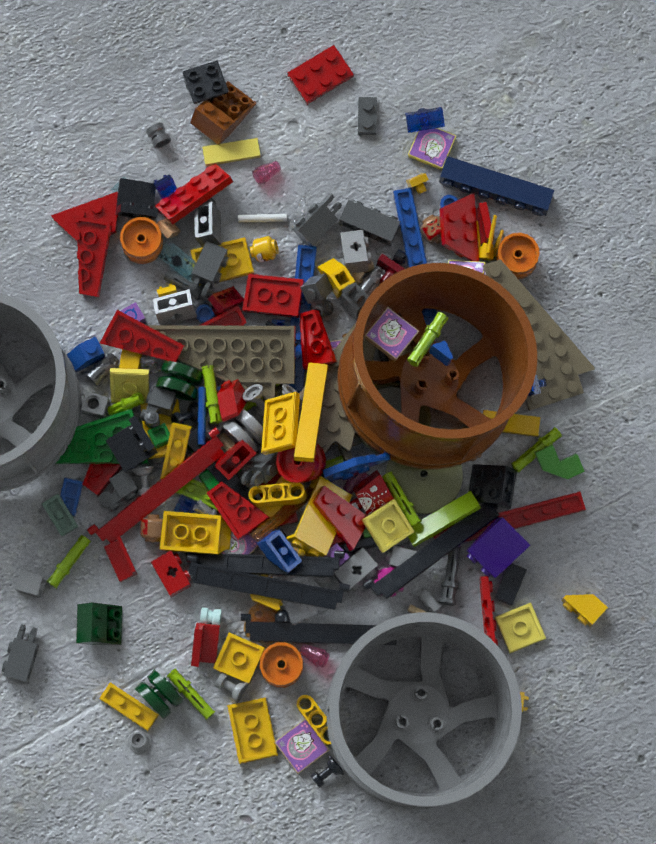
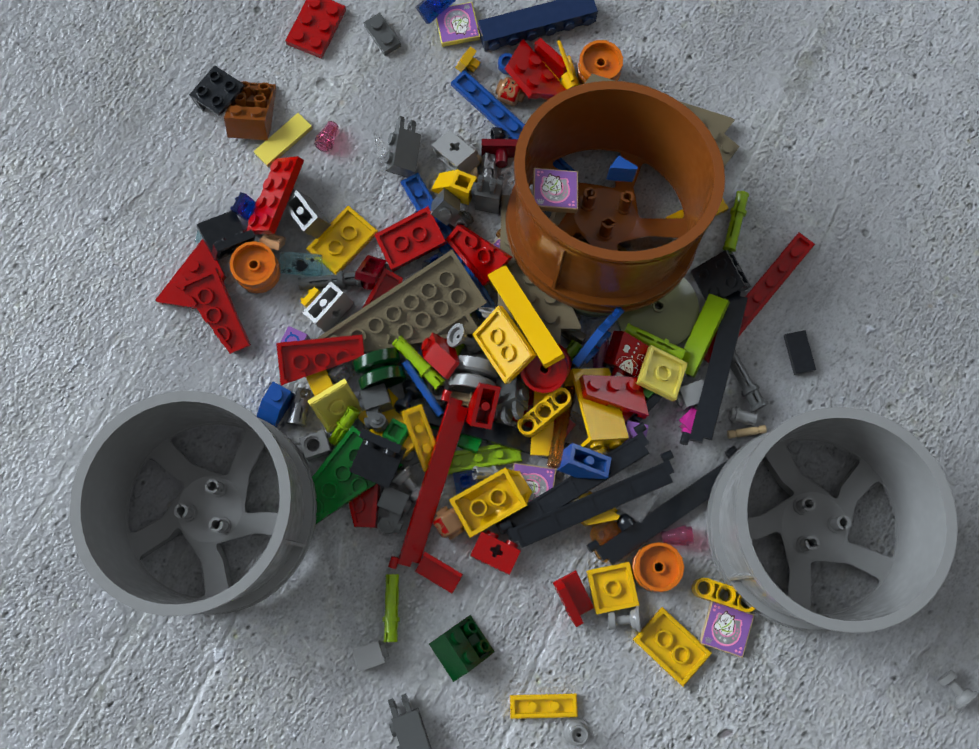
camera: 35 degrees left, 0 degrees up
(60, 515) = (353, 570): sand green plate -> none
(71, 494) = (349, 543): blue tile -> none
(158, 135) = (204, 165): flat silver wheel -> none
(162, 691) = (567, 671): dark green wheel -> none
(174, 676) = (618, 658): lime pin -> none
(204, 313) = (358, 296): blue tile -> none
(208, 267) = (334, 250): dark grey hinge -> none
(210, 617) = (560, 568): light aqua wheel -> none
(236, 510) = (516, 453): red wing -> none
(263, 218) = (351, 179): white piece -> none
(264, 249) = (373, 204): yellow head -> none
(333, 767) = (770, 630): black piece -> none
(359, 560) = (669, 425): light grey brick -> none
(371, 221) = (460, 119): dark grey brick -> none
(432, 331) = (597, 159): lime pin -> none
(488, 607) = (798, 387): red wing -> none
(497, 547) = (770, 326): dark purple slope -> none
(520, 628) = (836, 384): light yellow tile -> none
(563, 468) = (756, 223): bright green tile -> none
(586, 606) = (882, 328): yellow slope -> none

